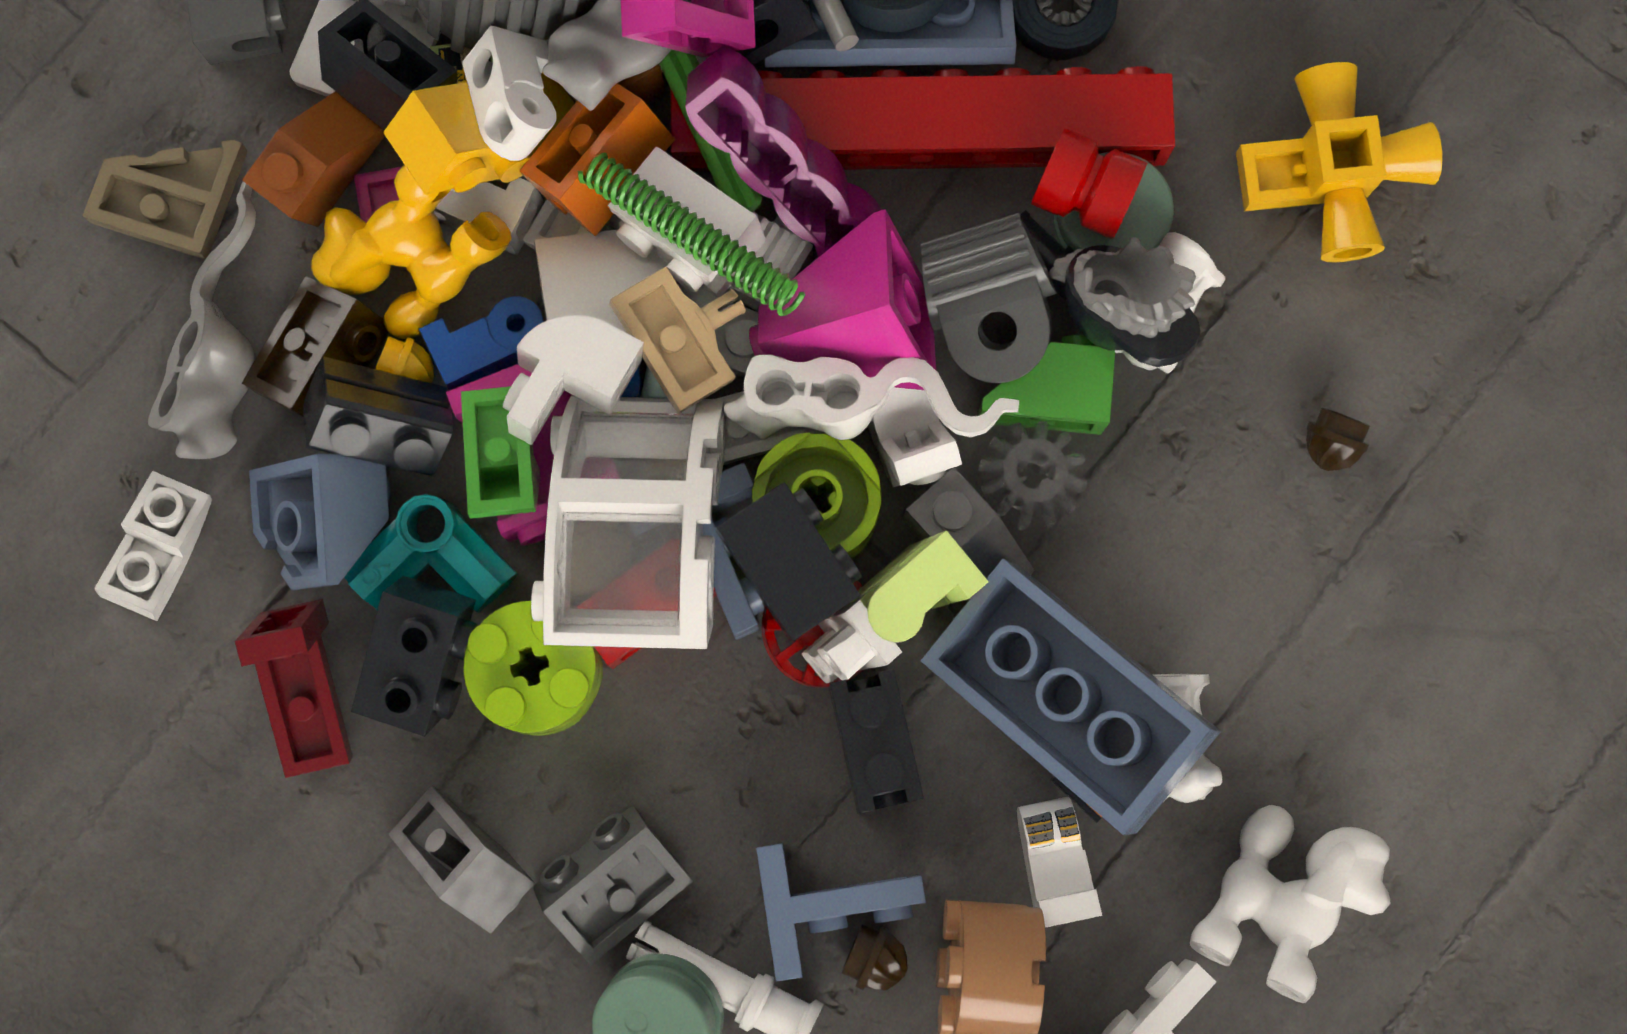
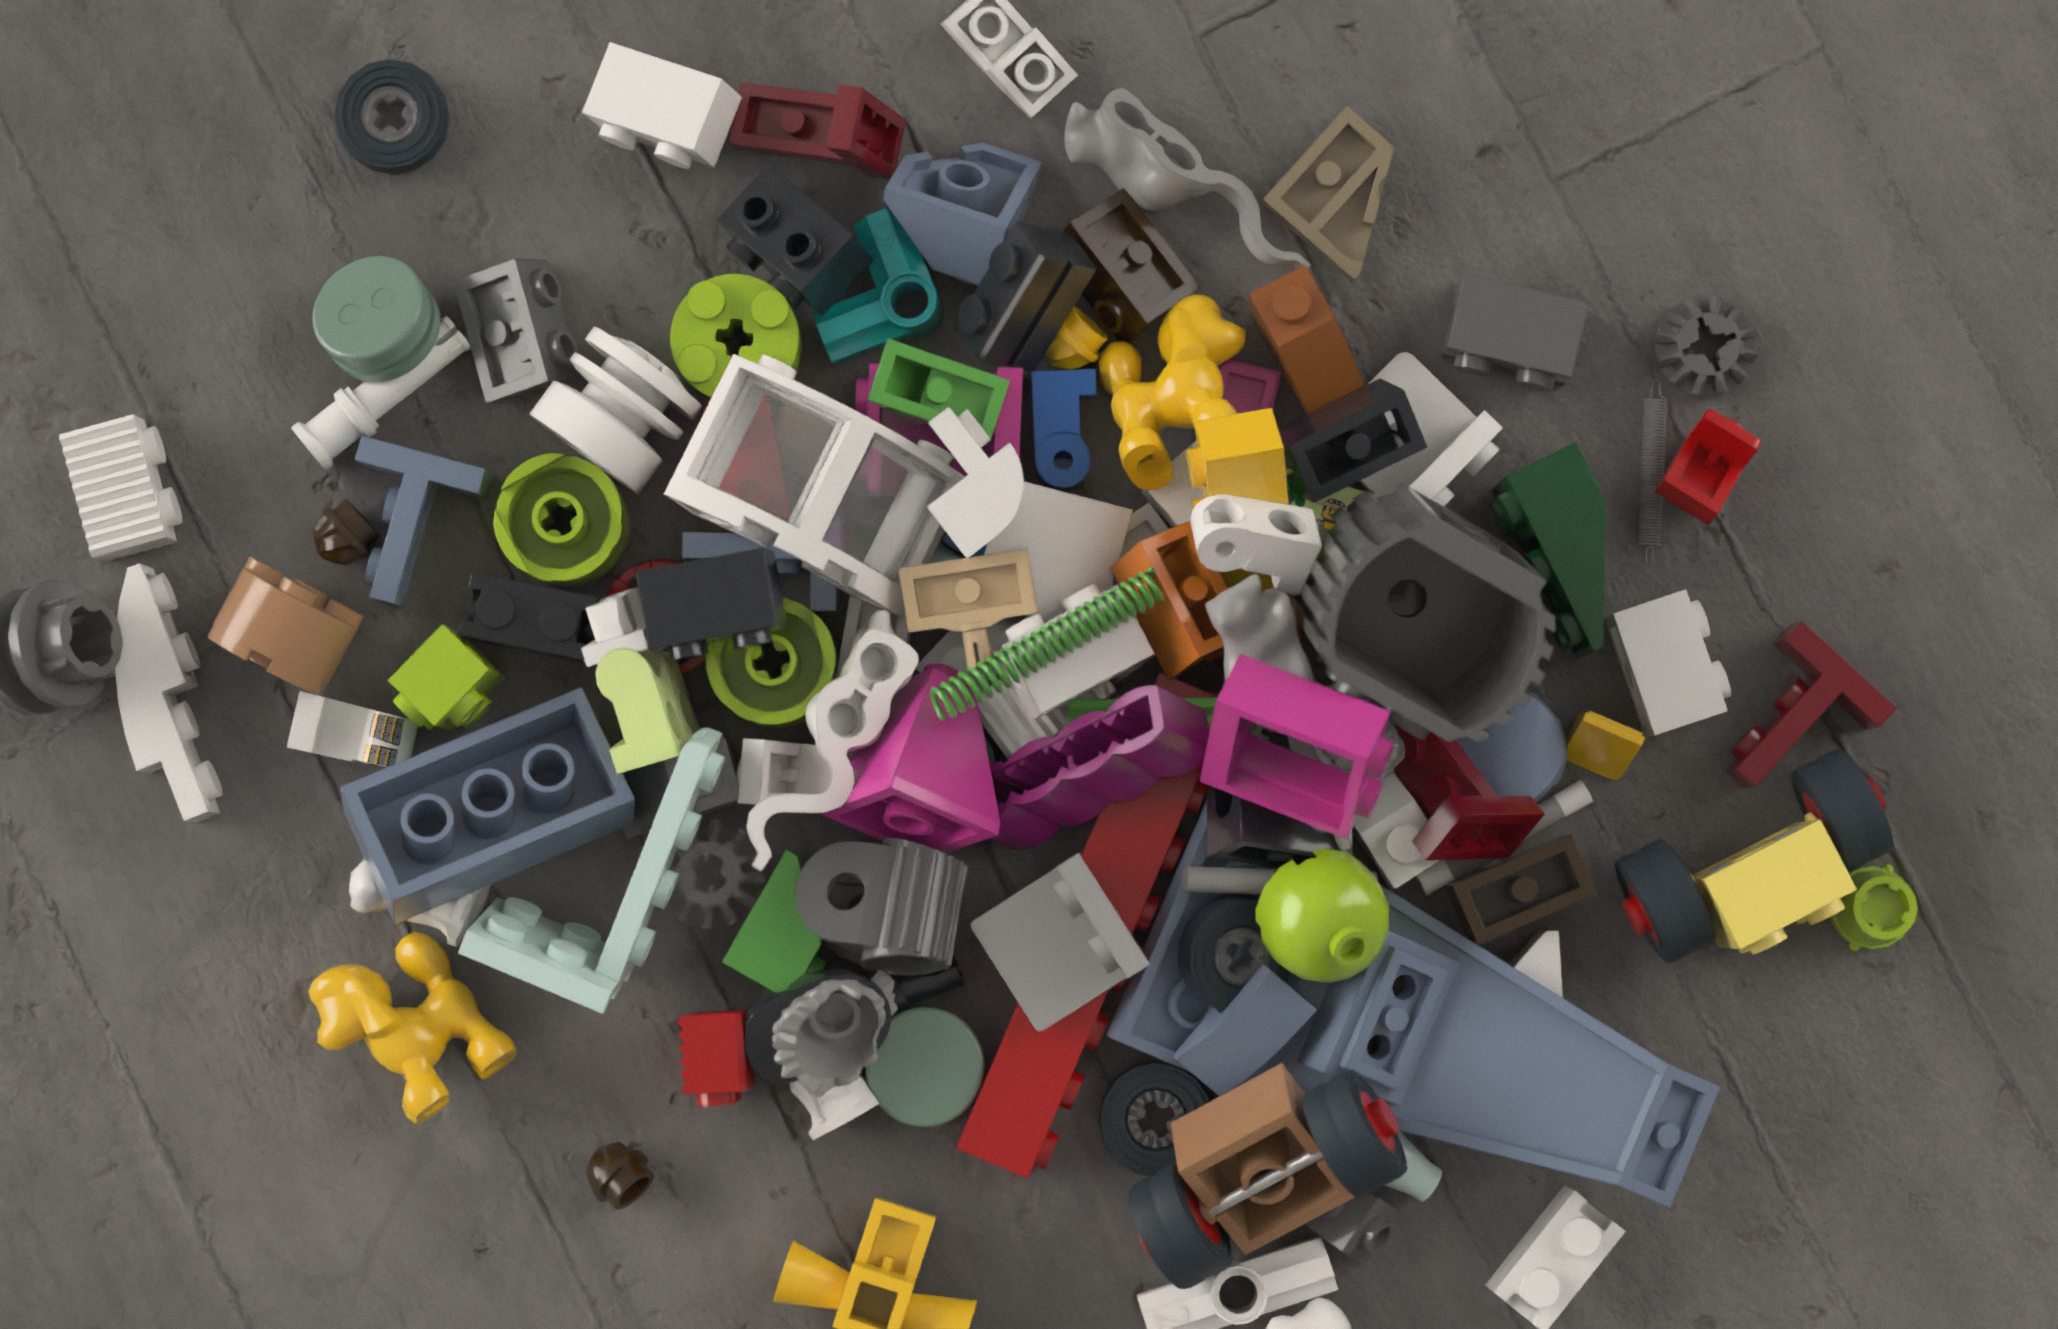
camera: 115 degrees right, 5 degrees up
(338, 840) = (661, 106): none -> white brick
(460, 860) = (597, 206): flat silver slope -> none
(644, 747) = (617, 409): none -> white wheel
(768, 716) = (527, 509): none -> lime brick
(951, 123) = (1058, 943): none -> light grey bracket
(974, 790) = (445, 682): none -> lime brick
(1089, 183) = (947, 1042): red wheel -> none
(1171, 562) = (571, 956): none -> light aqua bracket
(1194, 389) = (714, 1057): none -> red brick
(1299, 914) = (209, 922): white animal -> none
(1314, 678) = (409, 1040): none -> yellow animal

